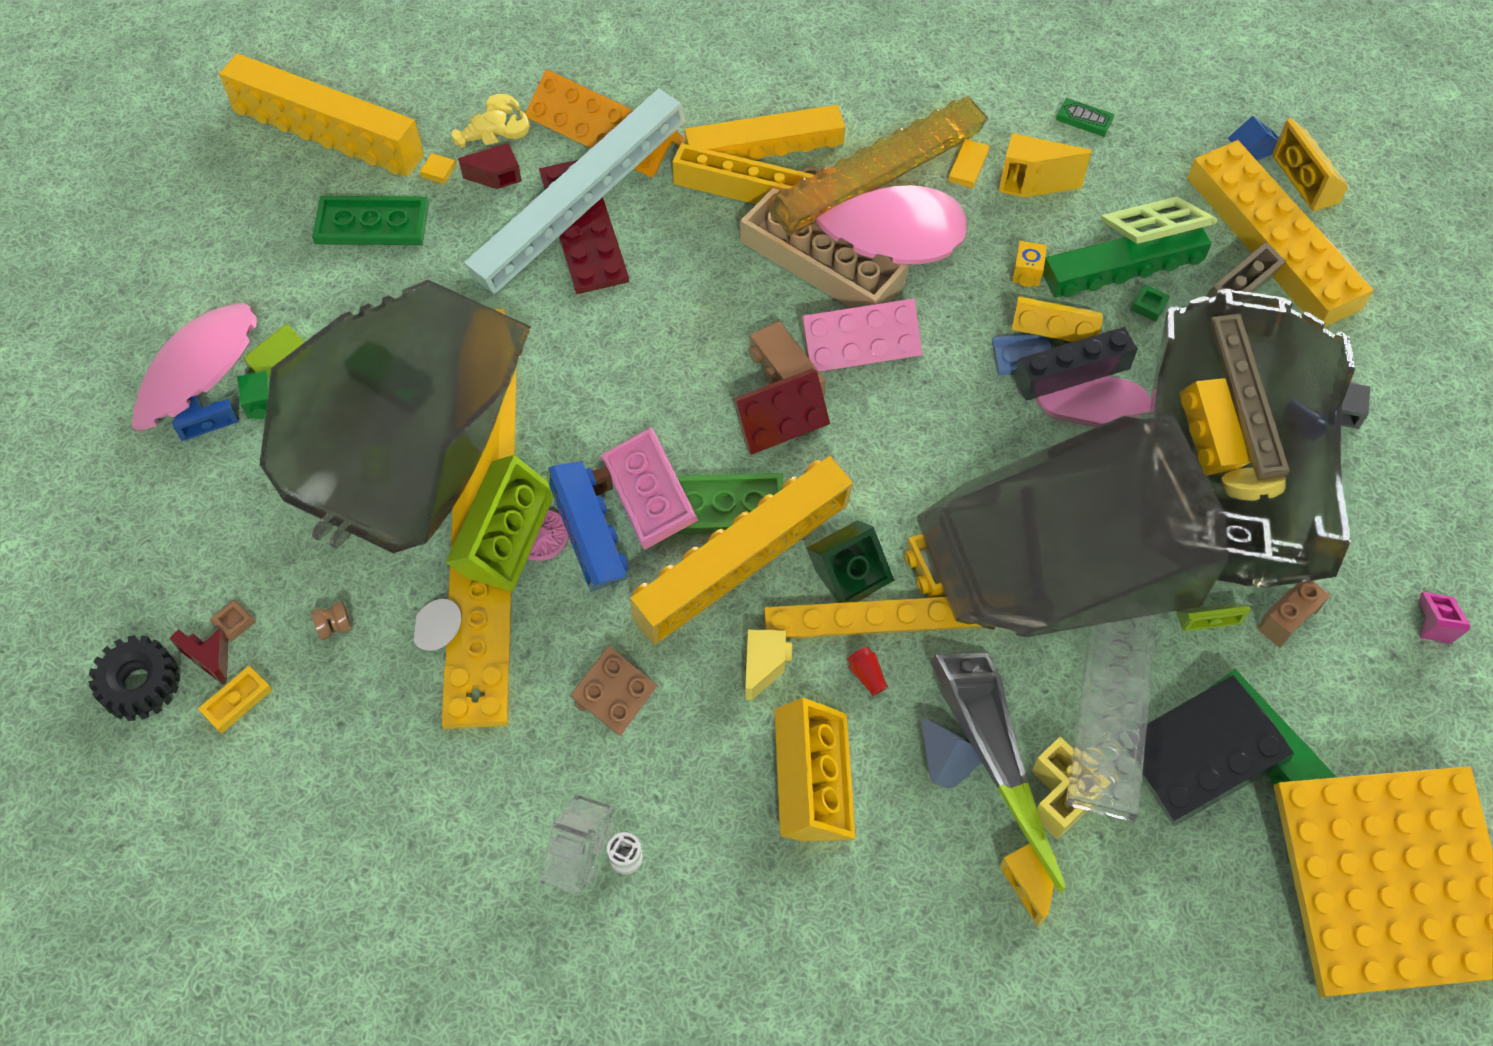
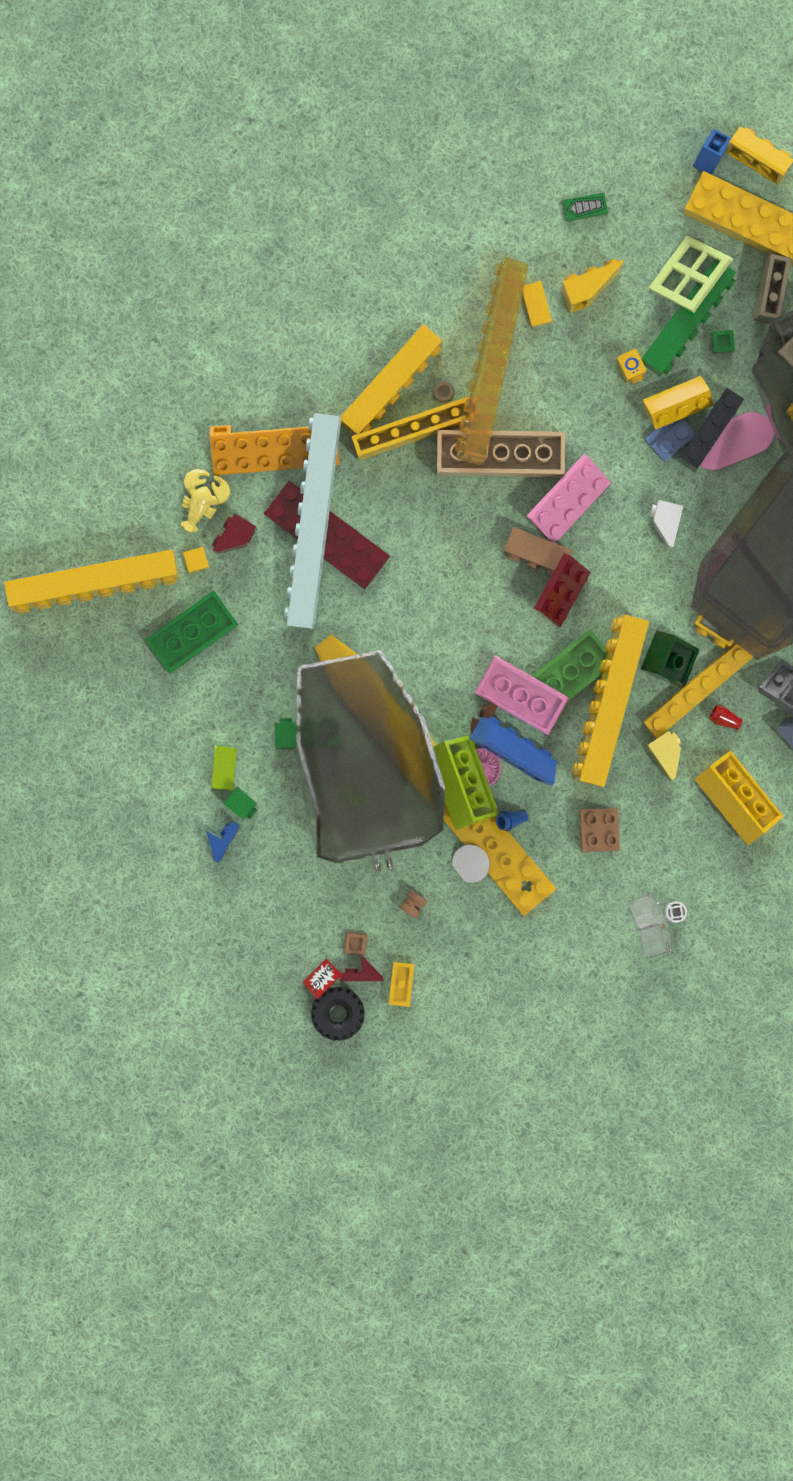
camera: 35 degrees left, 25 degrees up
(156, 625) = (322, 978): none -> sticker
(192, 362) = (188, 810): bright pink brick -> none
(520, 603) = (510, 819): none -> blue cone
(899, 223) = (540, 402): bright pink brick -> none
(958, 424) = (666, 520): none -> white slope

